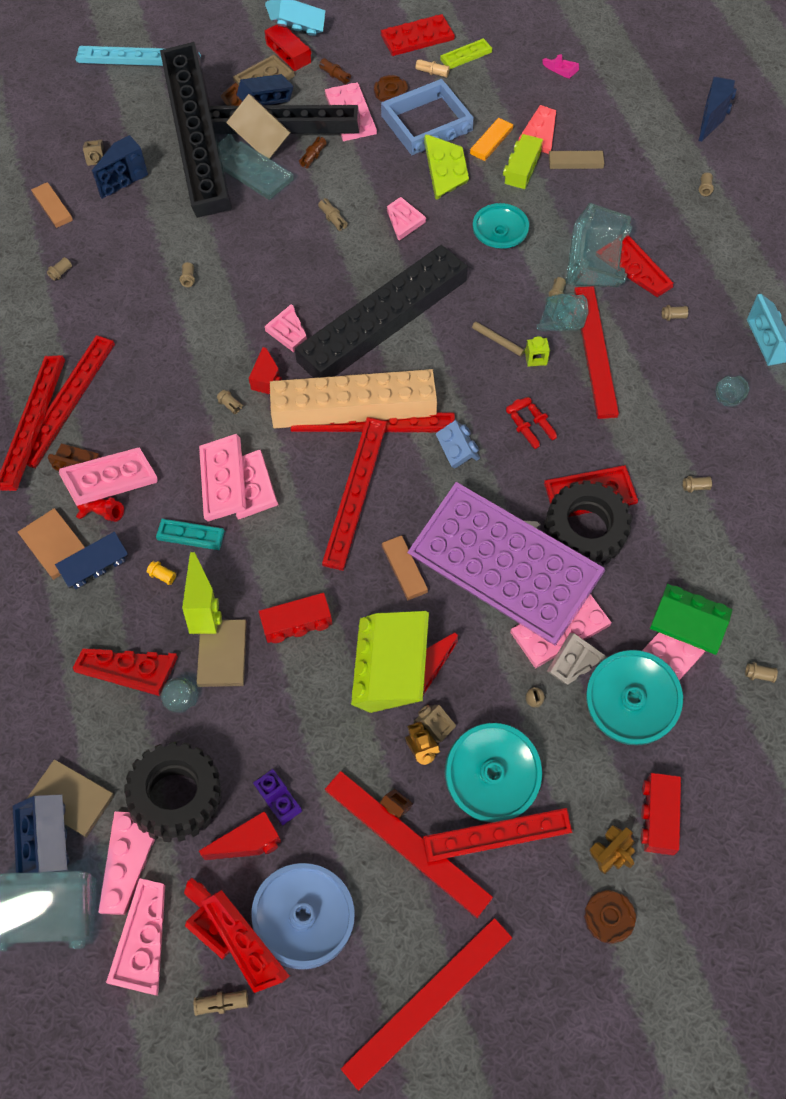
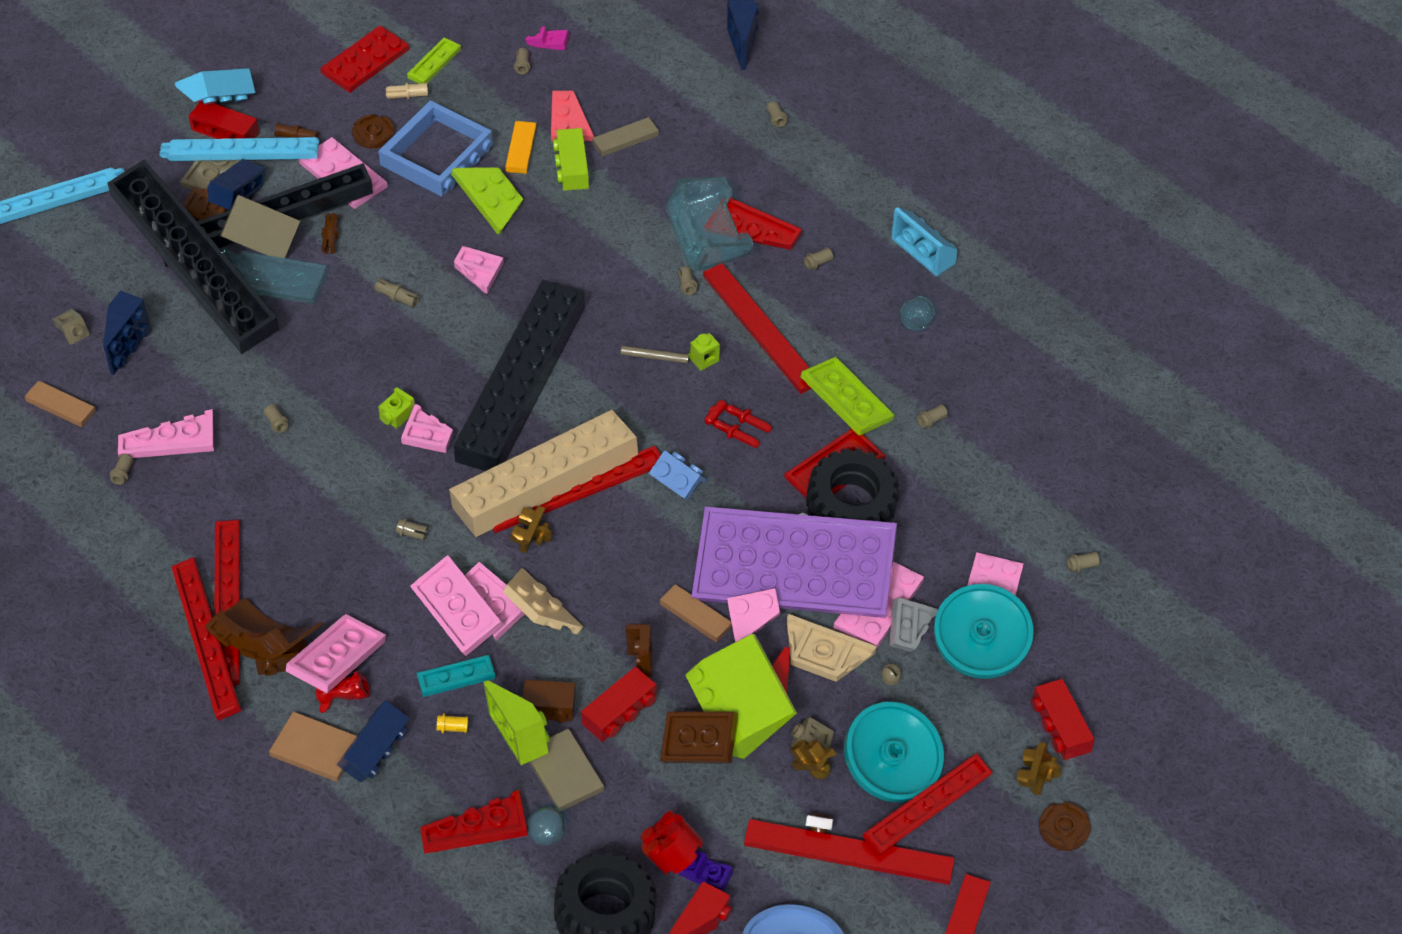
camera: 30 degrees left, 10 degrees down
(64, 431) = (254, 632): none -> reddish brown panel
(110, 261) = (181, 437): none -> bright pink wing
(243, 589) = (552, 698): none -> reddish brown brick
(258, 764) = (671, 843): none -> red brick
(264, 372) = (434, 485): red slope -> none
(275, 302) = (396, 408): none -> lime brick
(282, 503) = (538, 603): none -> tan wing
(287, 67) = (240, 149): none -> medium azure hinge
(322, 434) = (524, 536): none -> pearl gold hips
(337, 680) = (699, 737): none -> reddish brown tile
(338, 579) = (640, 644): none -> reddish brown bracket
(354, 494) = (601, 561): red tile -> none
(446, 589) = (752, 612): none -> bright pink wing
(490, 649) = (824, 650): none -> tan wing
(500, 225) = (591, 236): teal dish -> none
(529, 77) = (522, 65): none -> dark tan pin
(564, 313) = (708, 301): clear light blue slope -> none
(634, 437) = (847, 396): none -> lime tile
(691, 619) = (996, 539): green slope -> none

